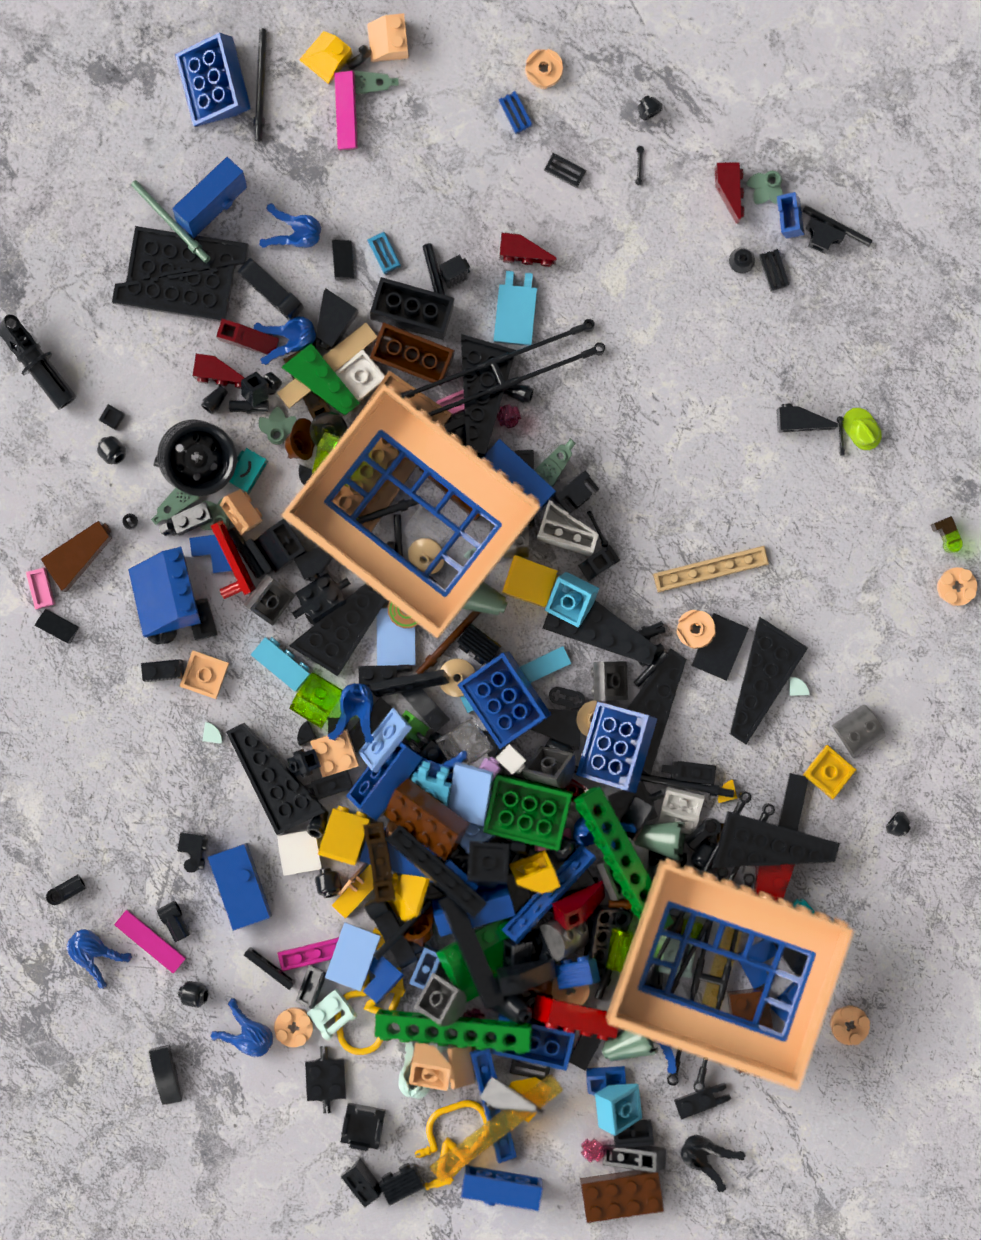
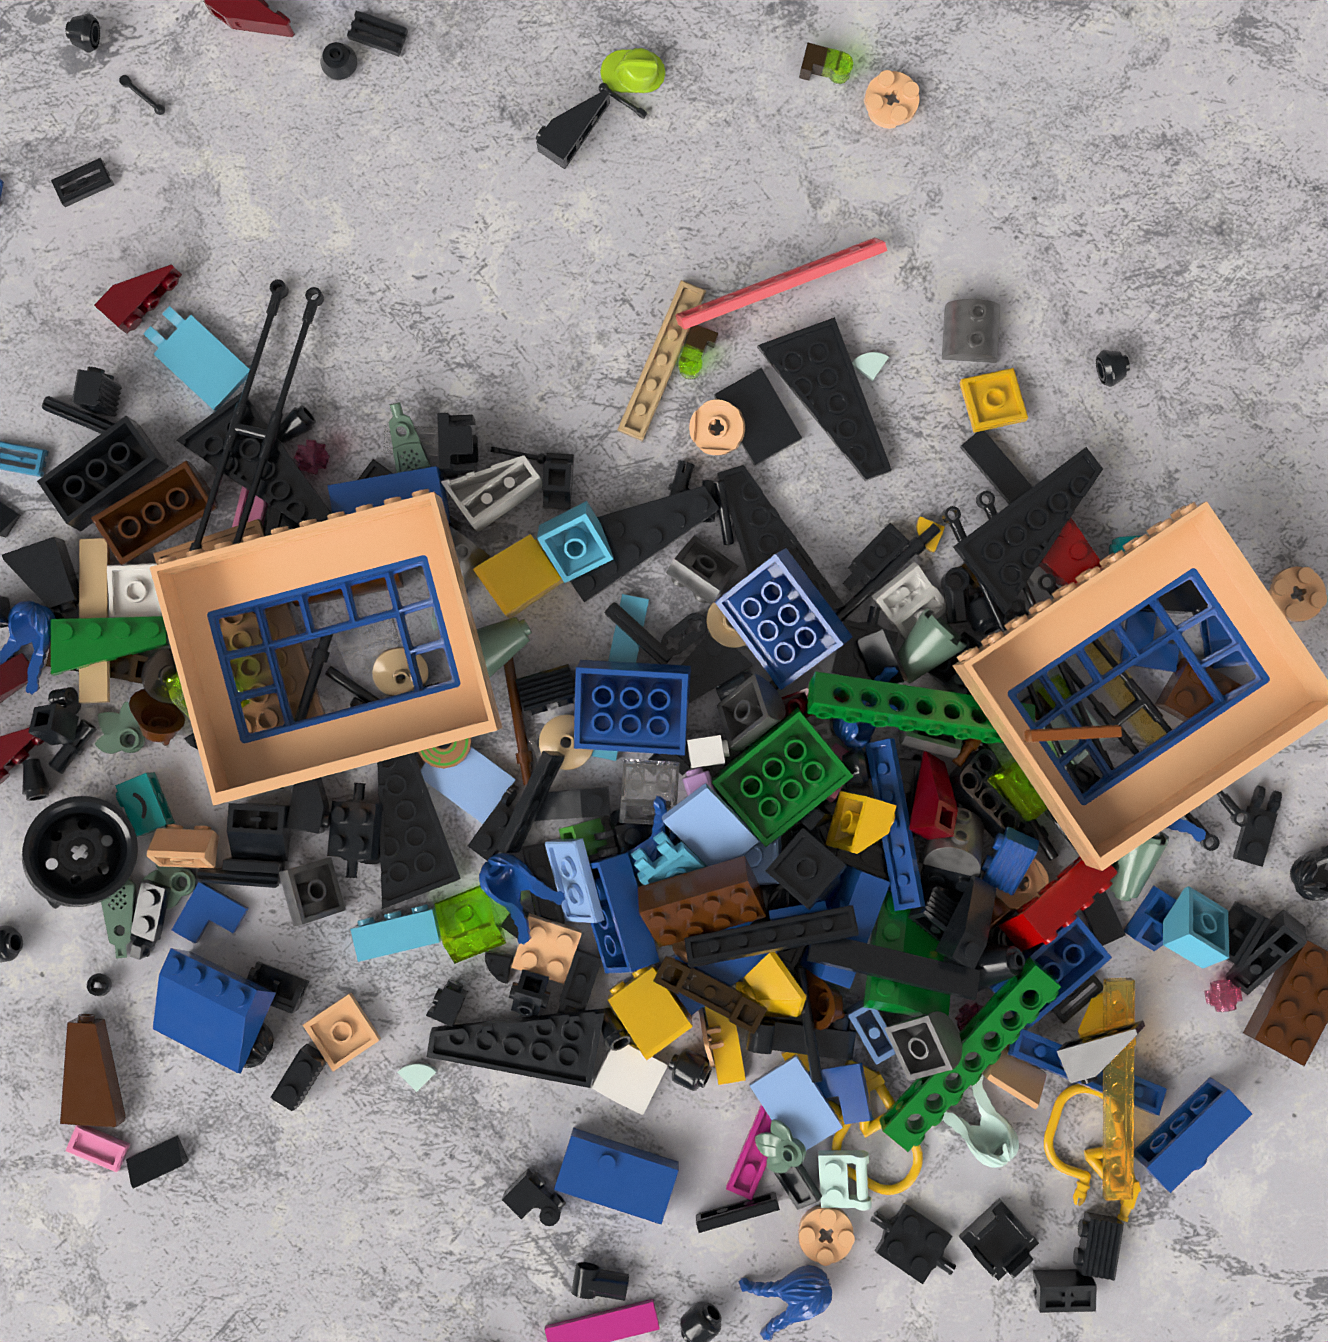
camera: 50 degrees left, 0 degrees up
(244, 582) = (266, 903): red piece -> none
(264, 721) = (448, 1003): none -> black brick
(323, 965) = (780, 1148): none -> sand green plate
(429, 1068) = (991, 1116): light nougat slope -> none
(547, 672) = (638, 633): none -> black axle
(670, 951) = (1072, 733): none -> dark orange tile
(723, 585) = (691, 357): none -> leg
(804, 603) = (780, 282): none -> coral tile

